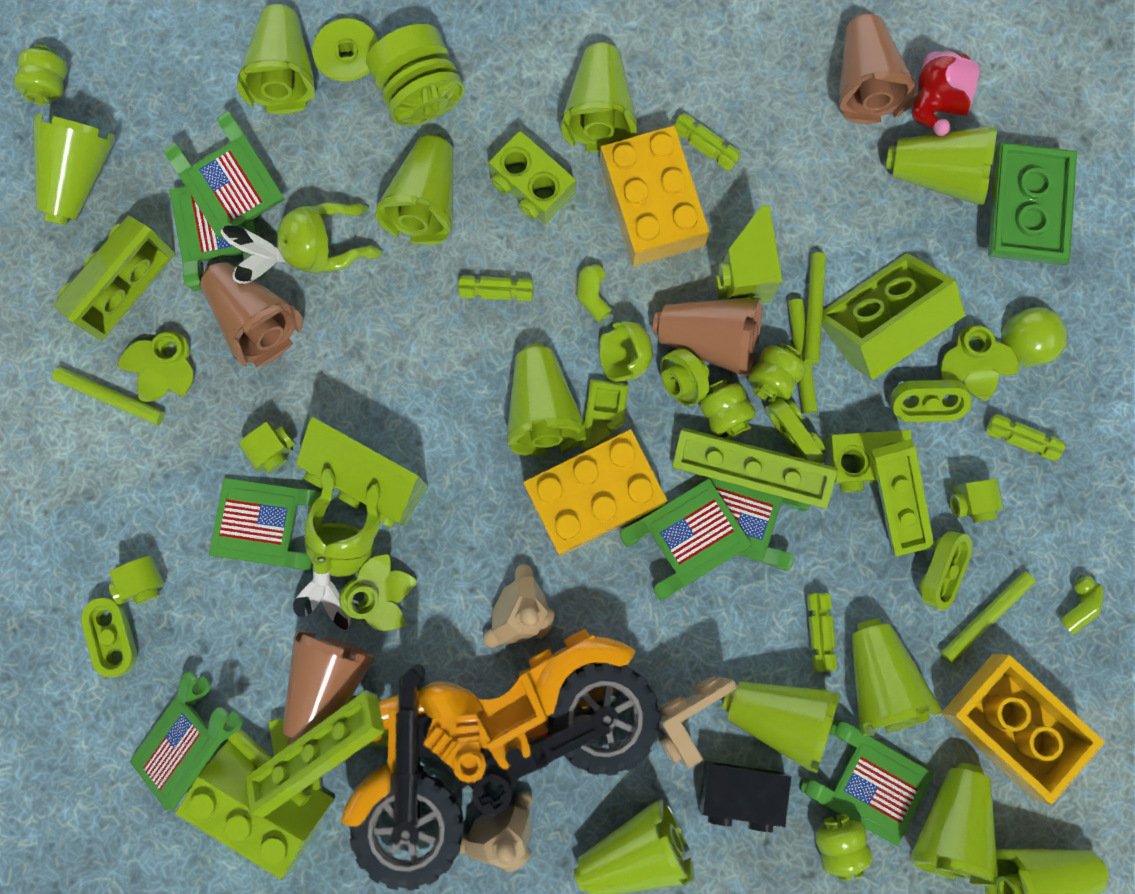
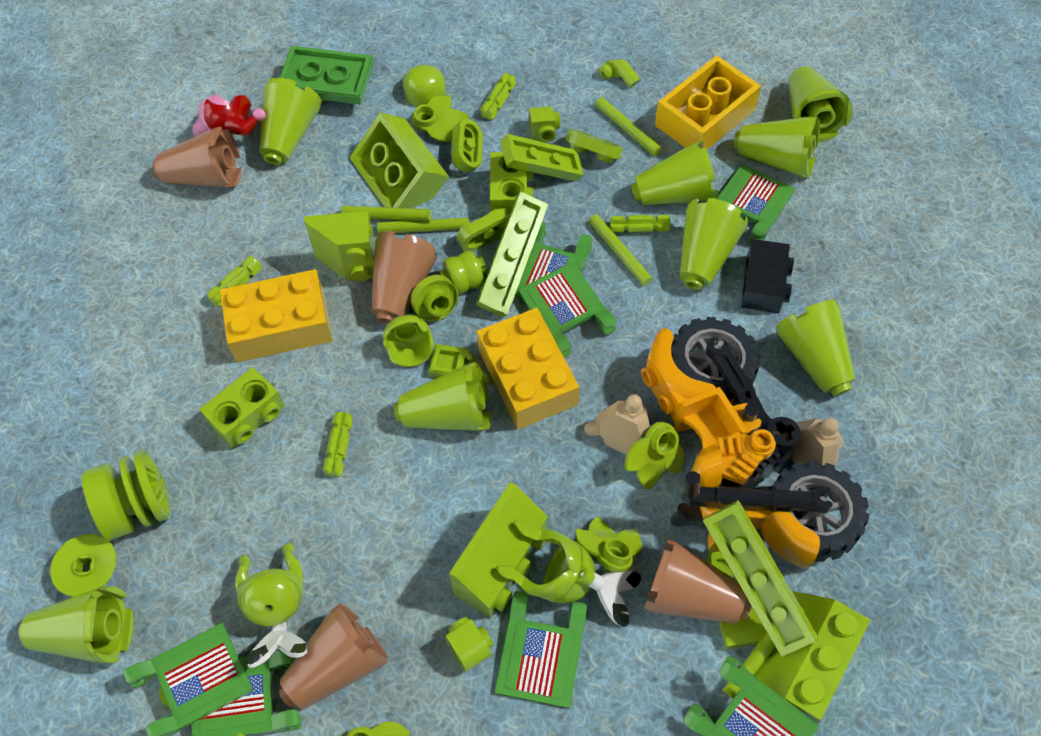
camera: 85 degrees left, 20 degrees down
(421, 194) = (242, 495): lime cone -> none
(490, 649) = (655, 454): none -> lime plate
(588, 292) = (351, 370): lime arm -> none
(599, 101) = (184, 349): lime cone -> none
(676, 740) = (703, 301): tan bracket -> none
(776, 373) = (439, 234): lime piece -> none
(781, 606) = (620, 250): none -> lime bar
(843, 847) = (800, 214): lime piece -> none

